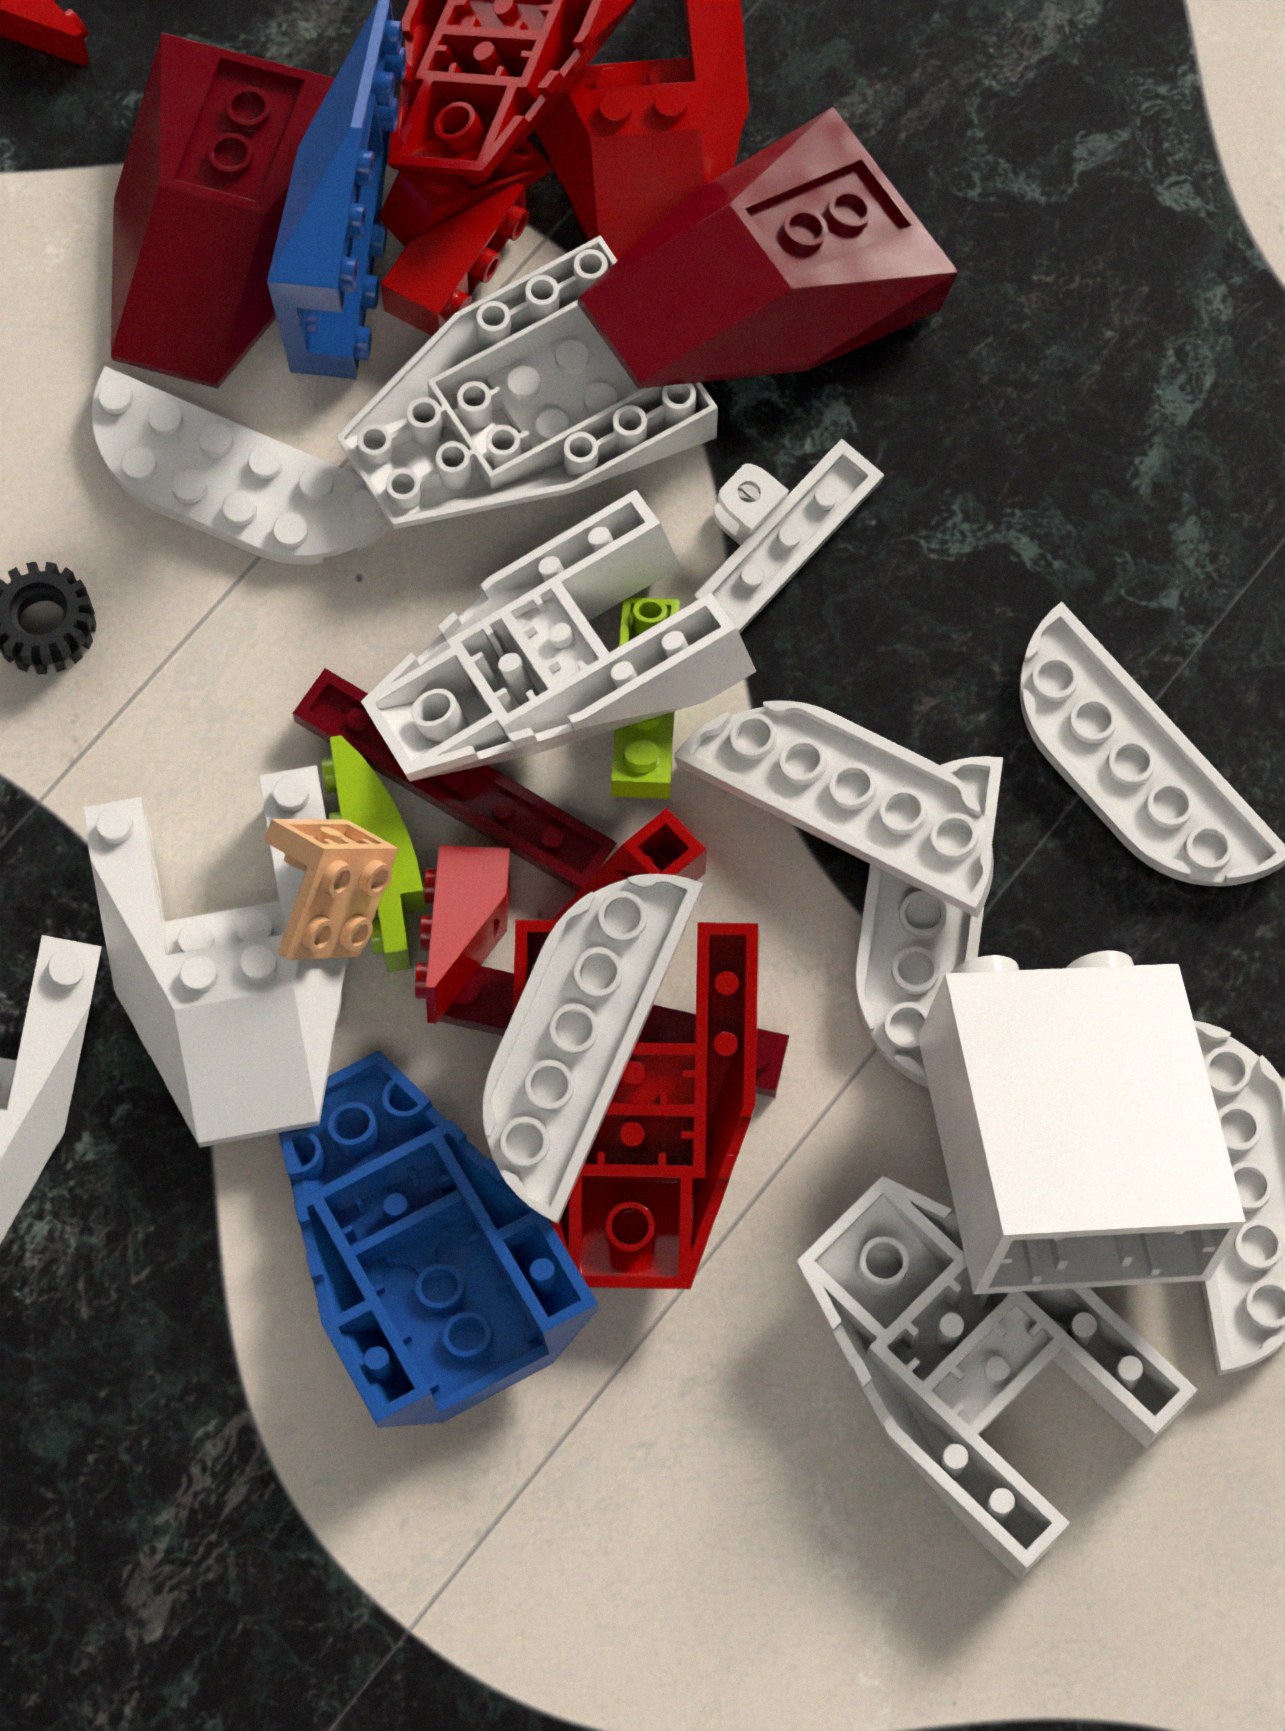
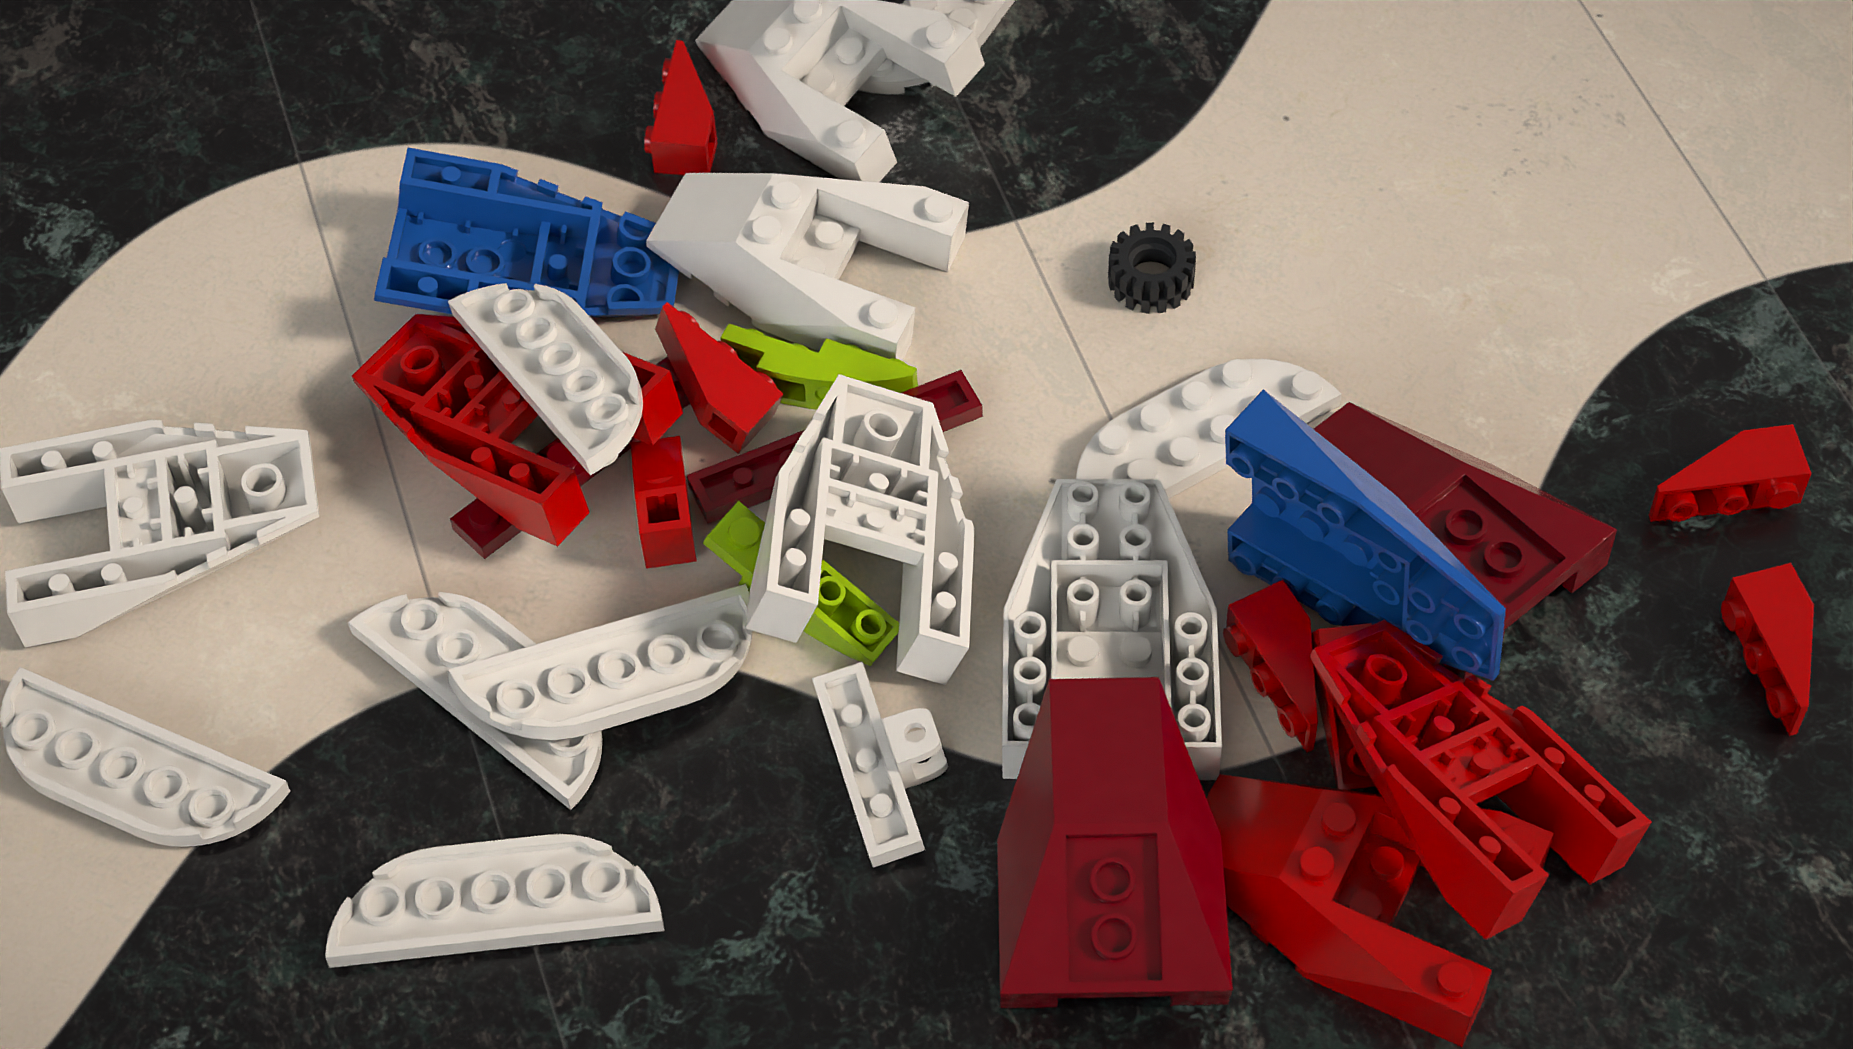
camera: 125 degrees right, 15 degrees down
(112, 1207) = (684, 120): none -> red slope
(340, 888) = (794, 289): light nougat bracket -> none
(1078, 1125) = (237, 631): white brick -> none

